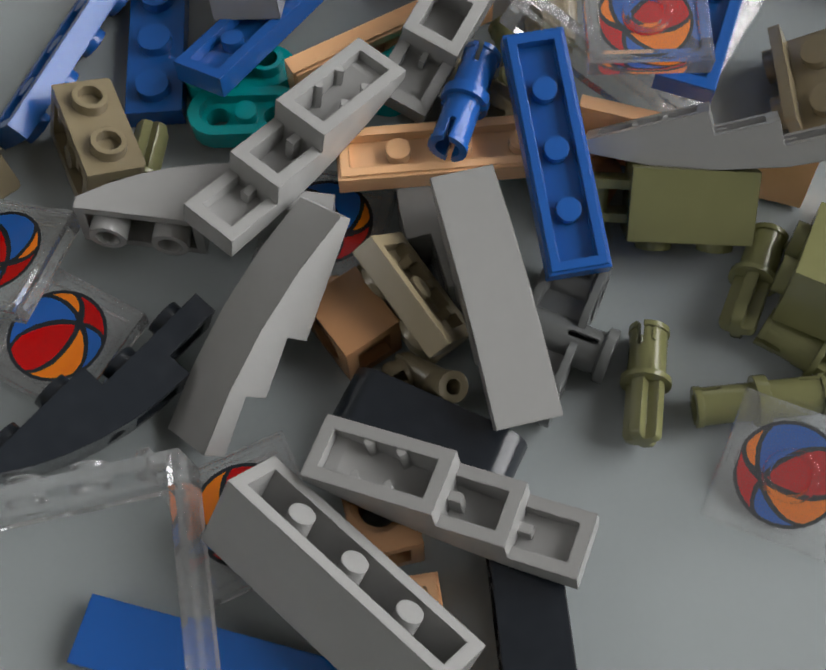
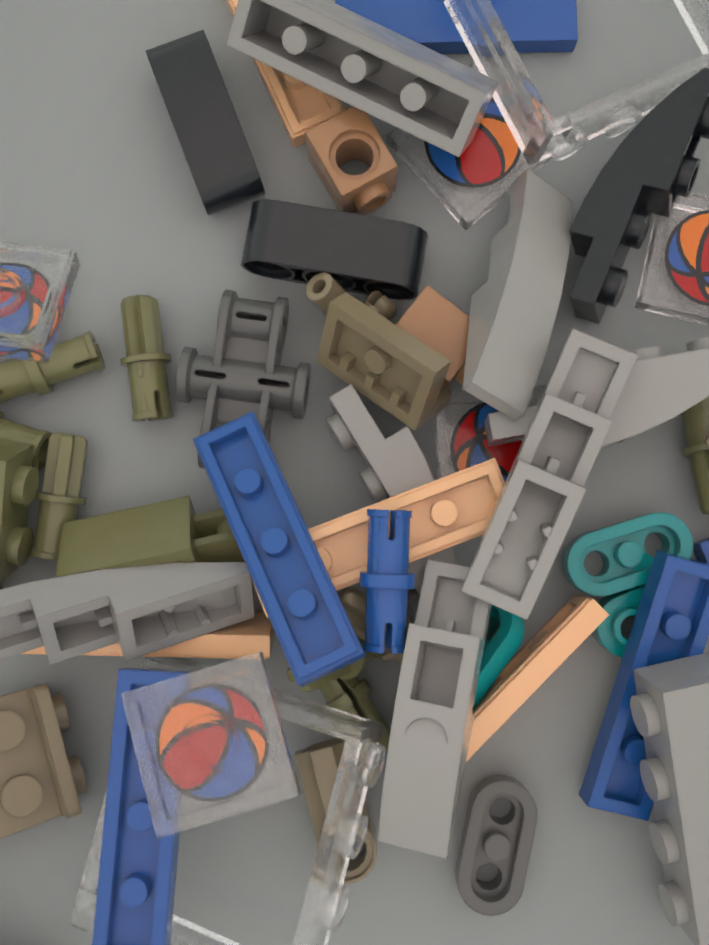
camera: 165 degrees right, 20 degrees up
(451, 501) = (292, 163): light grey slope -> none
(495, 298) = (303, 371): light grey slope -> none

